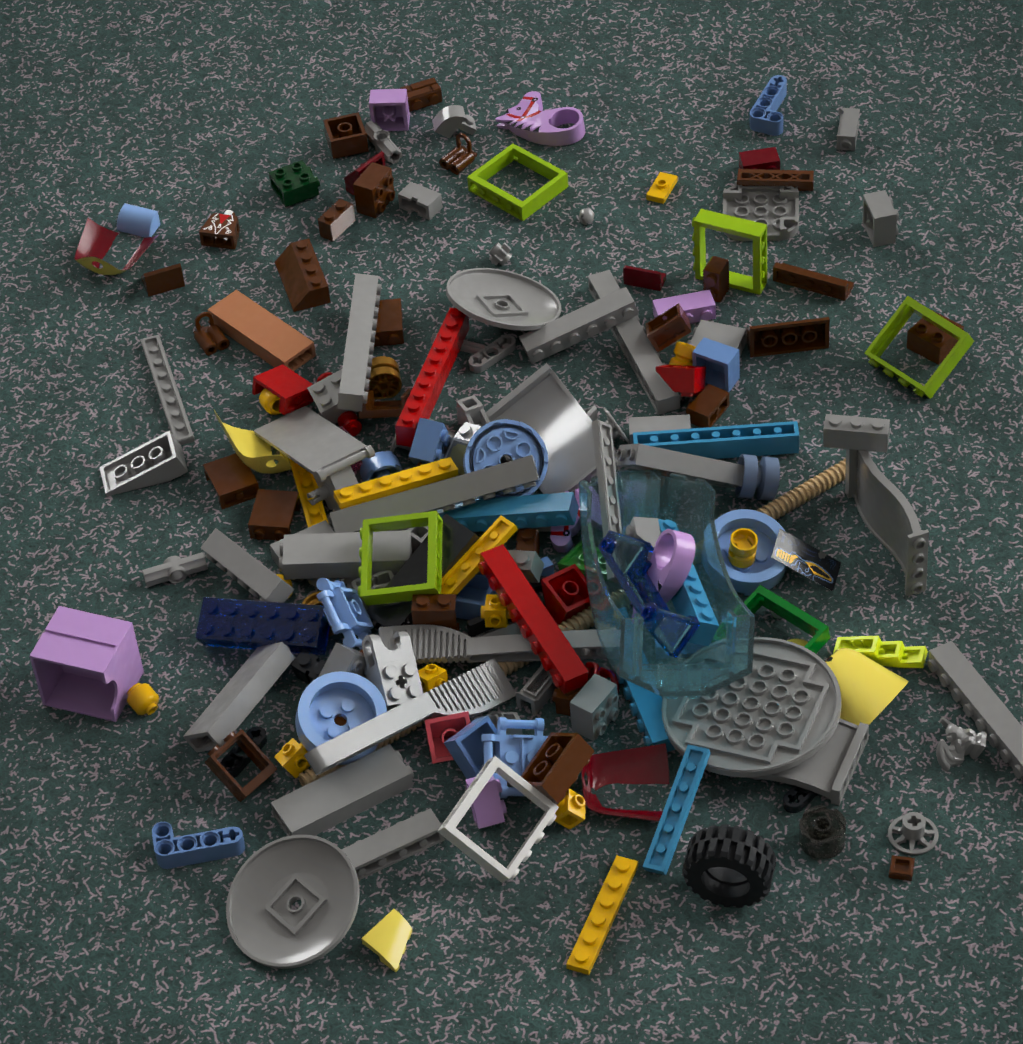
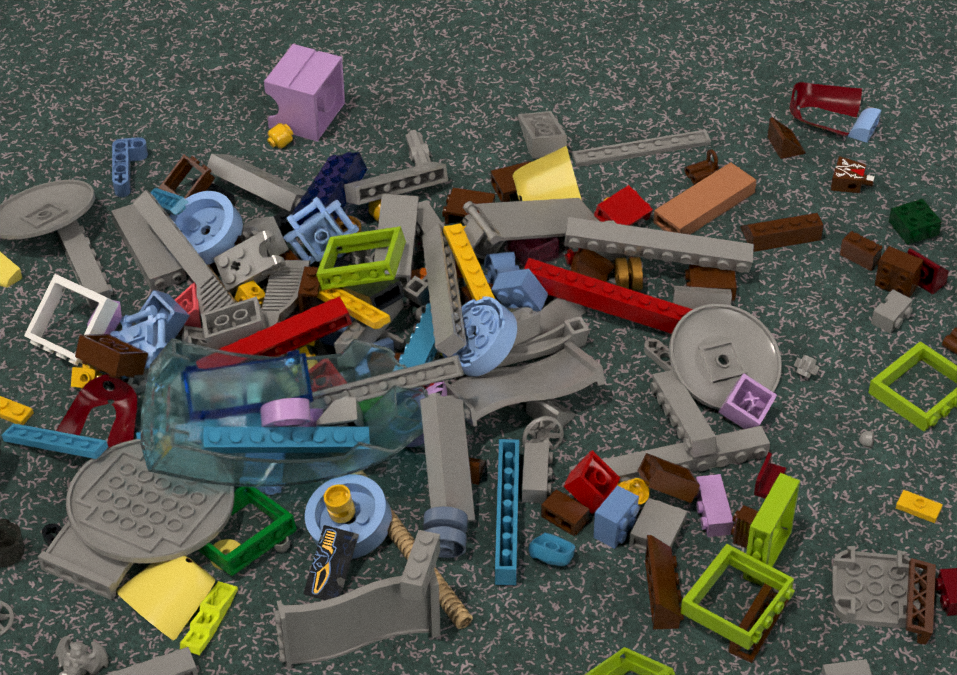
camera: 90 degrees right, 0 degrees up
(294, 762) = (170, 202): none -> dark azure plate
(417, 324) = (697, 296): none -> light grey brick
(504, 661) = (232, 322): none -> light grey brick
(561, 284) = (747, 403): none -> lavender brick
(757, 408) = (552, 550): none -> dark azure piece
(794, 298) = (752, 567): none -> lime window

